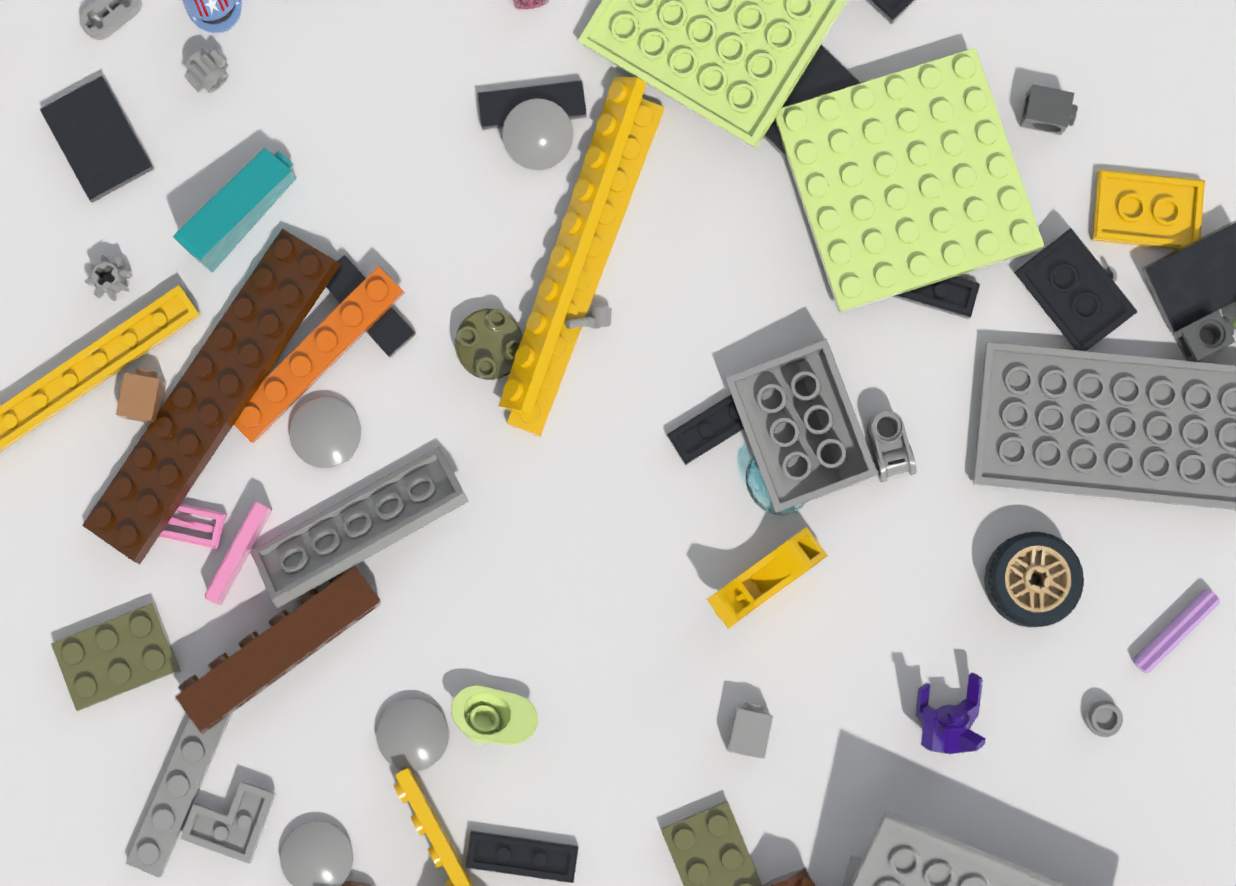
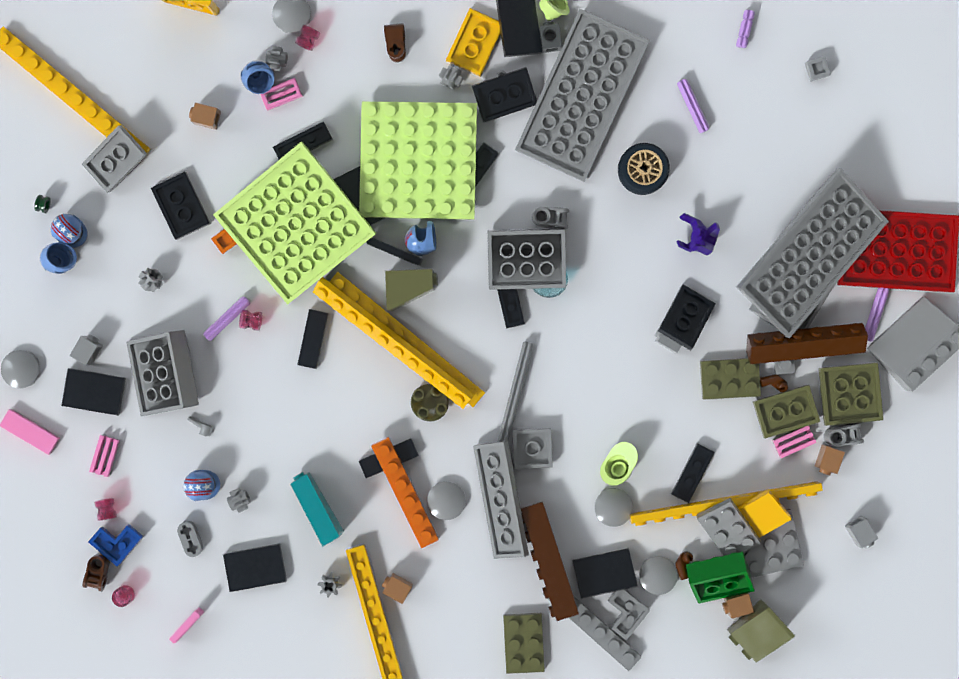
camera: 65 degrees left, 5 degrees up
(211, 396) = (408, 552): reddish brown plate -> none
(217, 530) = (476, 571): bright pink tile -> none
(238, 553) = (493, 565): bright pink tile -> none
(288, 758) = (604, 573): none -> black tile
(469, 553) = (532, 448): none -> light grey plate
(537, 134) = (329, 341): light grey dish -> none
(560, 489) = (515, 391): none -> light grey axle
(598, 318) = (434, 342): light grey hand -> none
(681, 235) = (407, 286): none -> olive slope
(734, 193) = (394, 251): none -> black tile
(767, 577) = (596, 303): yellow arch -> none
(769, 232) = (421, 240): none -> medium blue helmet
(797, 747) = (686, 317): none -> black tile
(1048, 110) = (406, 75): dark grey brick -> none
(1073, 188) = (451, 77): none -> light grey gear
(1102, 70) = (395, 40): none -> reddish brown piece
(1104, 718) = (724, 158): light grey plate -> none

